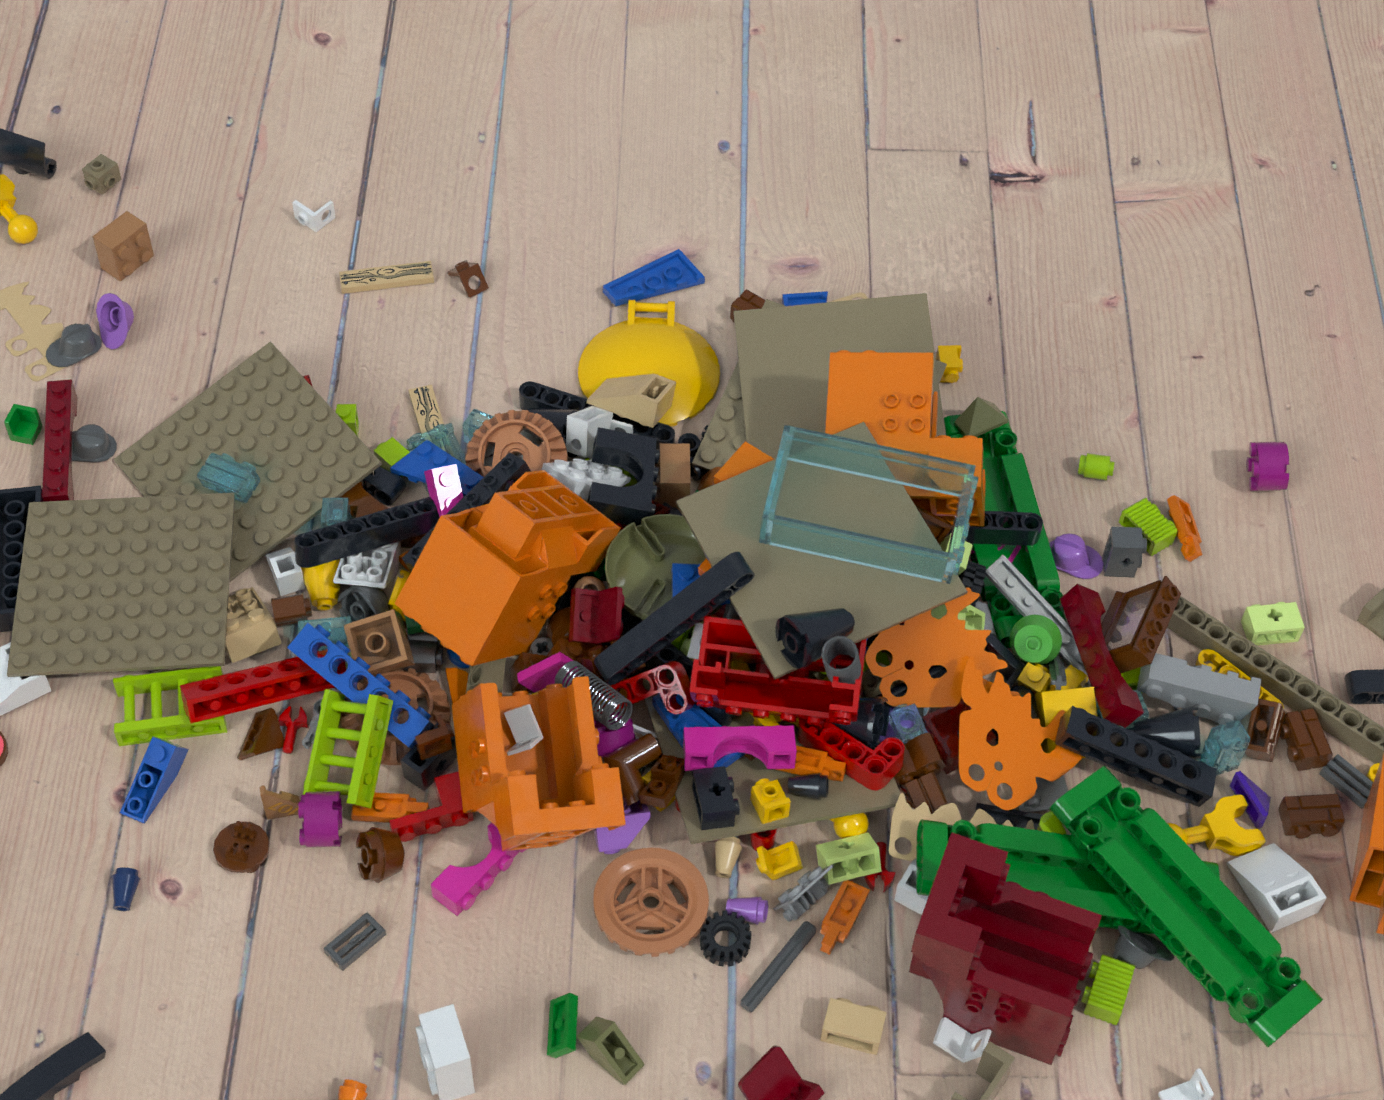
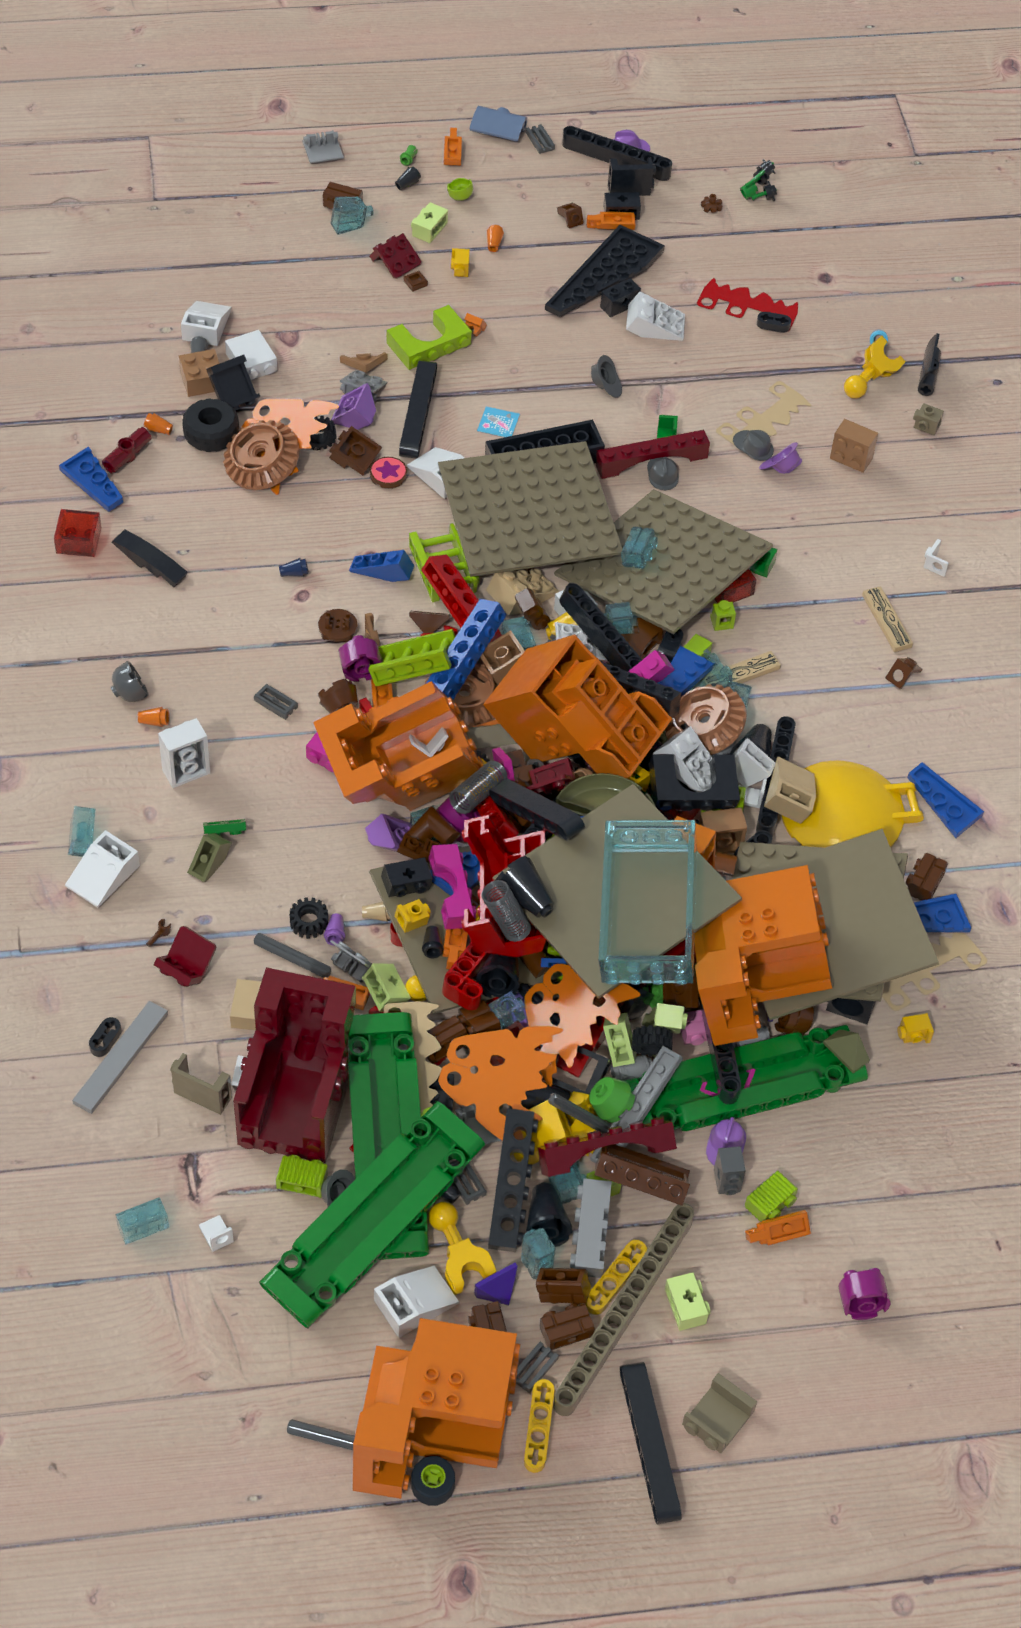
camera: 80 degrees right, 0 degrees up
(651, 872) = (317, 847): nougat gear -> none
(779, 860) = (378, 942): yellow bracket -> none
(1096, 466) = (830, 1153): lime brick -> none

